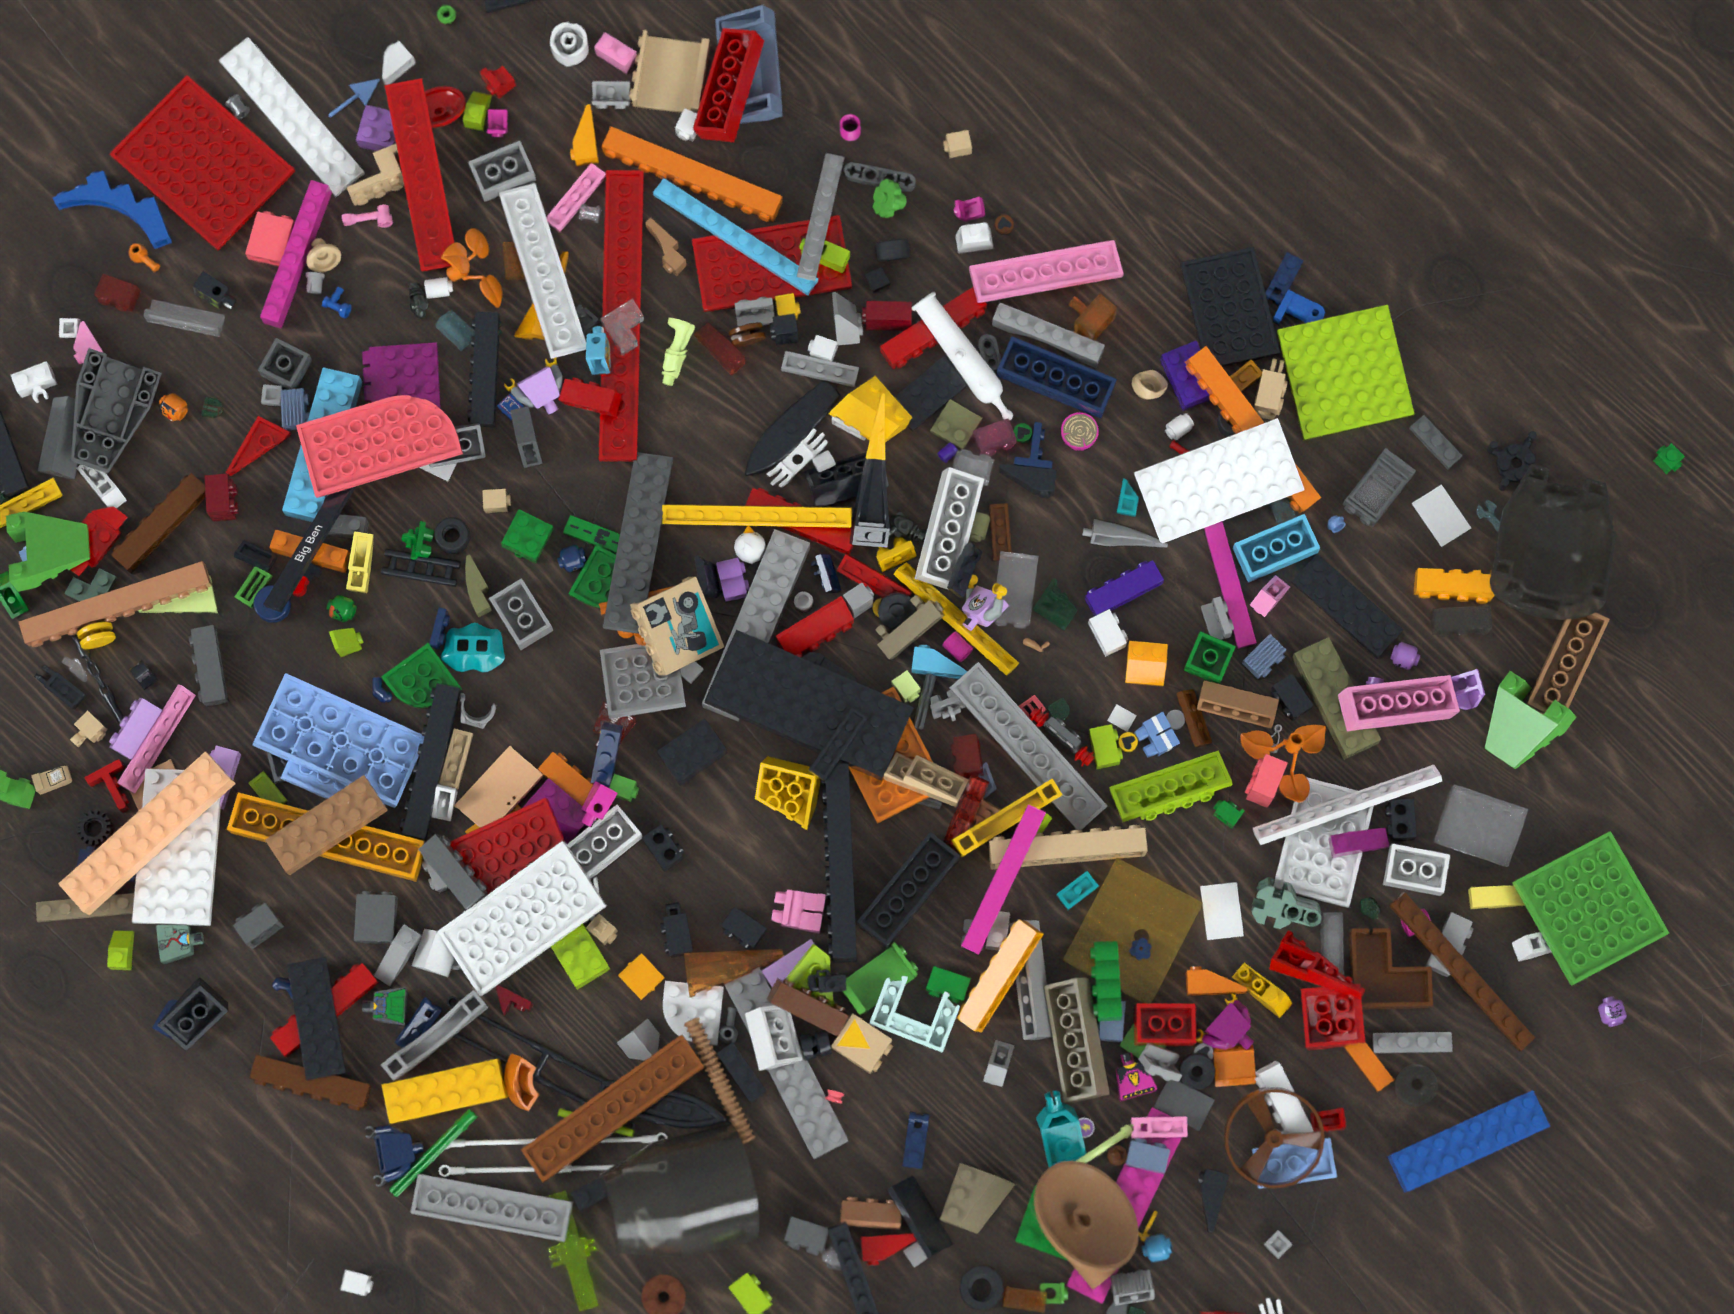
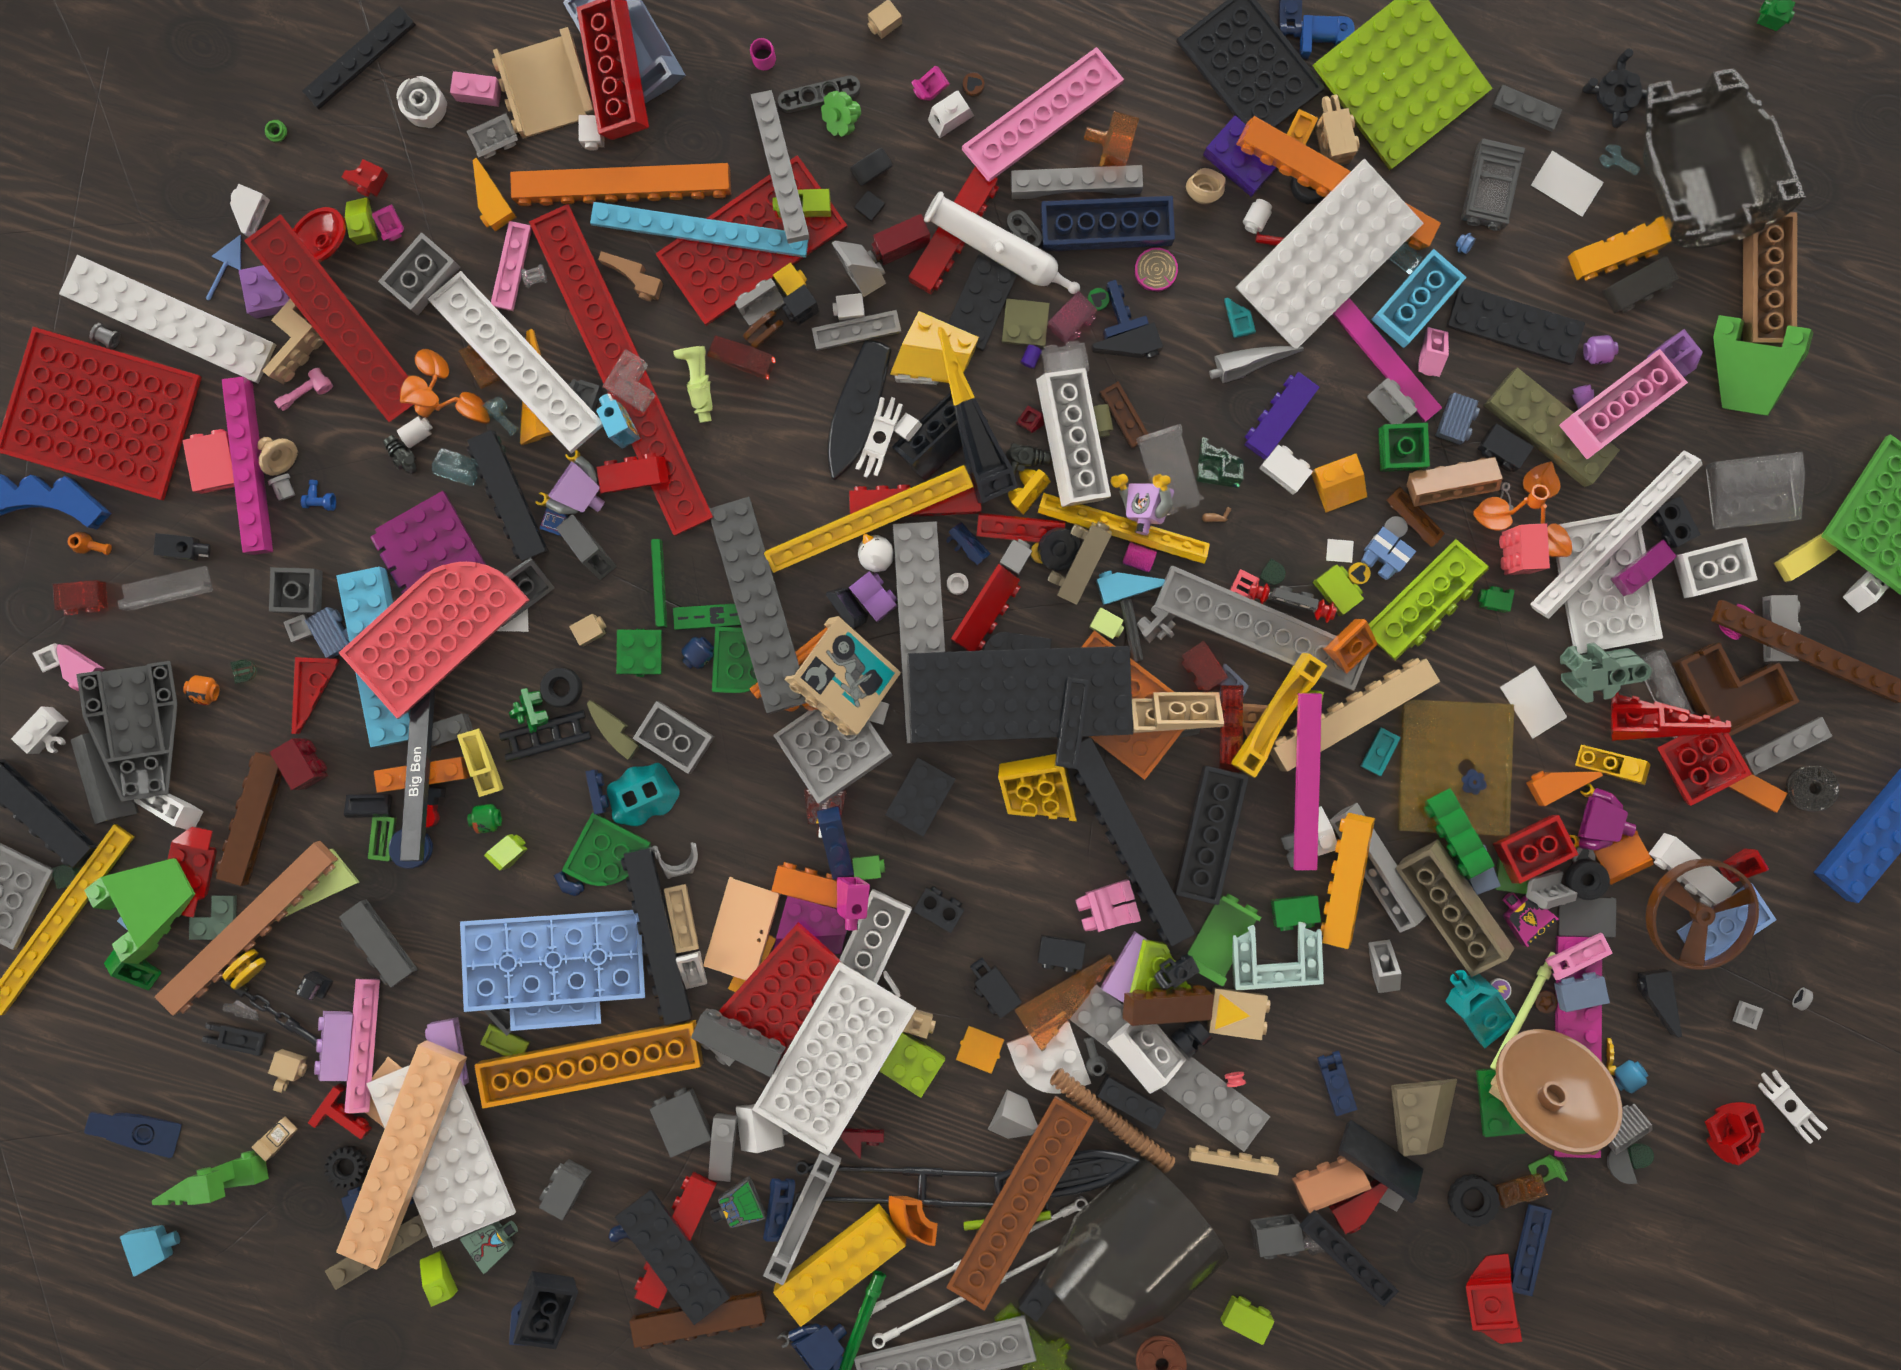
camera: 25 degrees left, 10 degrees up
(326, 825) = (583, 1058): medium nougat brick -> none
(510, 299) = (496, 408): none -> clear light blue bar
(569, 491) = (659, 583): none -> green tile
(808, 1165) = (1224, 1158): none -> tan plate
(924, 501) = (1031, 419): none -> dark red slope
(964, 570) = (1111, 474): black hinge -> none
(1093, 793) = (1351, 645): none -> orange slope
(1329, 1252) = (1802, 999): none -> light grey tile
(1369, 907) = (1683, 628): clear green plant -> none

